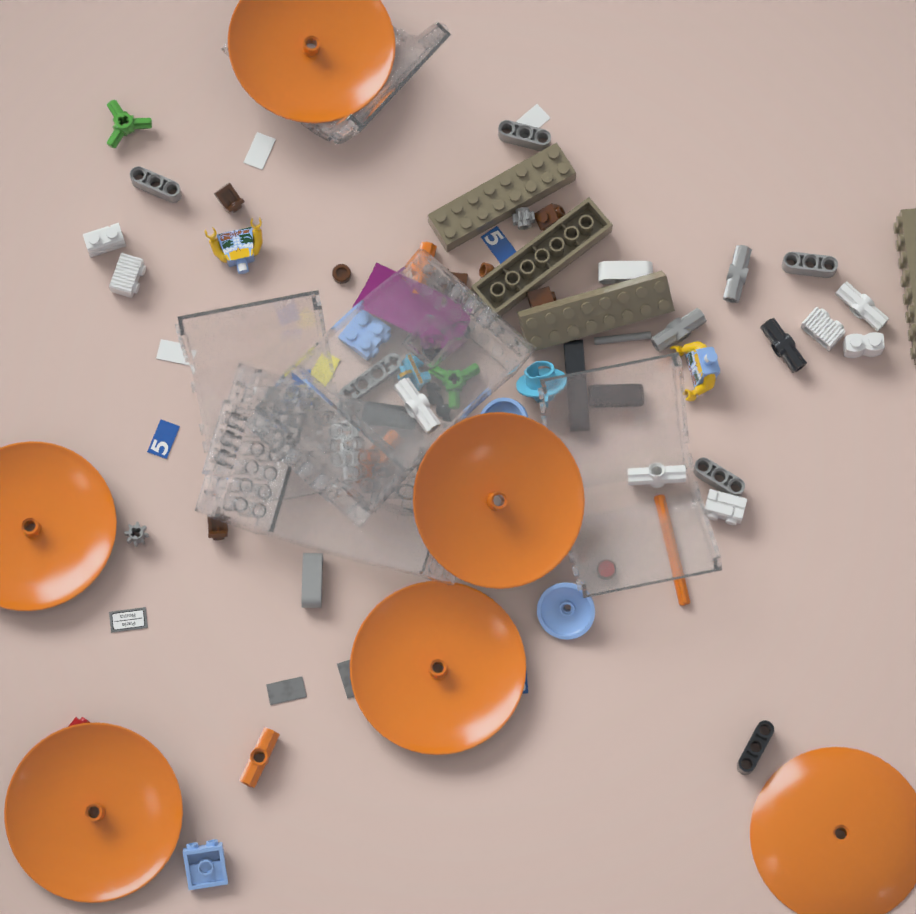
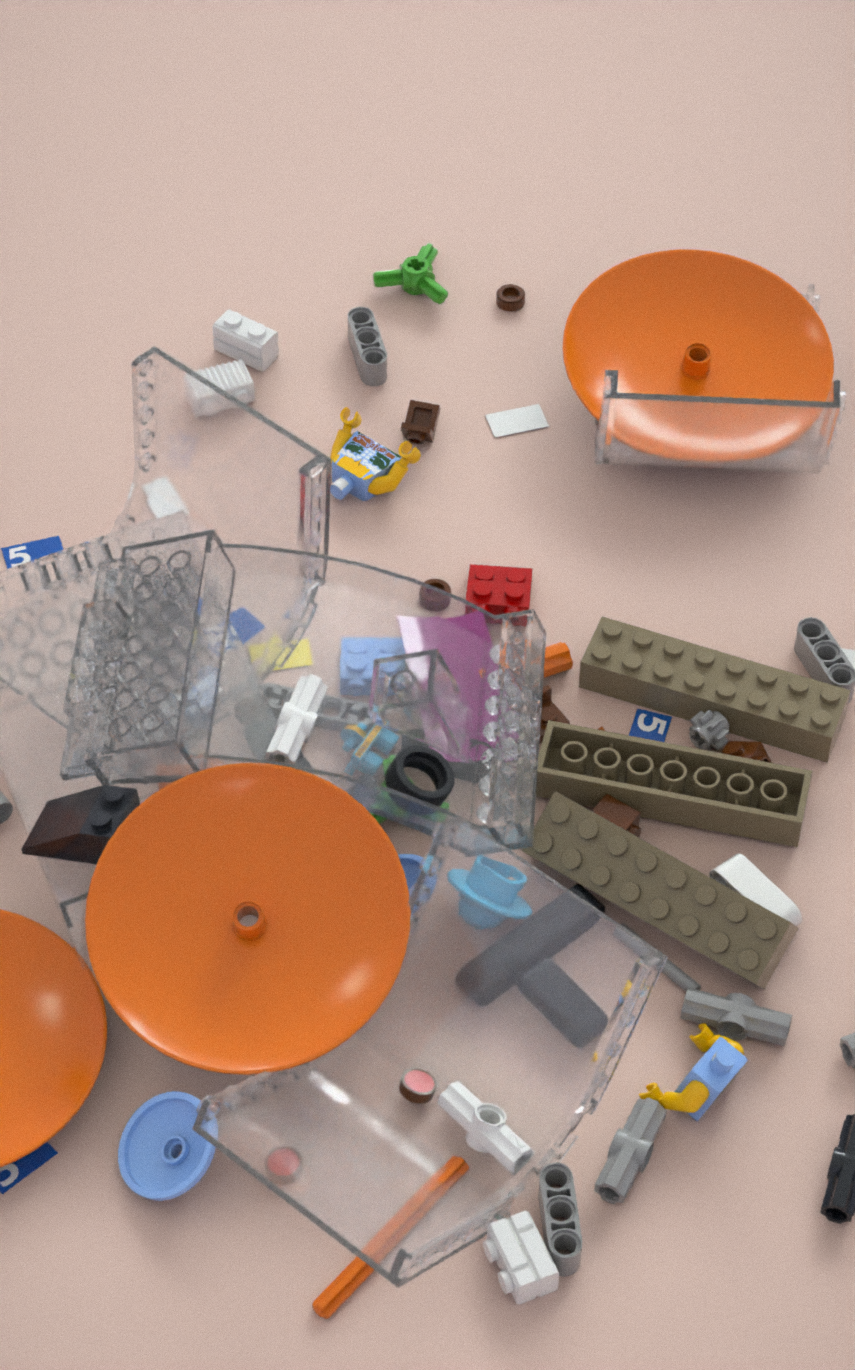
camera: 50 degrees right, 25 degrees down
(174, 89) = (510, 297): none -> reddish brown tile
(366, 245) = (499, 588): none -> red plate
(384, 534) = (80, 823): none -> black slope
(473, 383) = (427, 761): none -> black tyre
(612, 486) = (417, 1086): none -> tile
(708, 424) = (630, 1150): none -> light grey piece

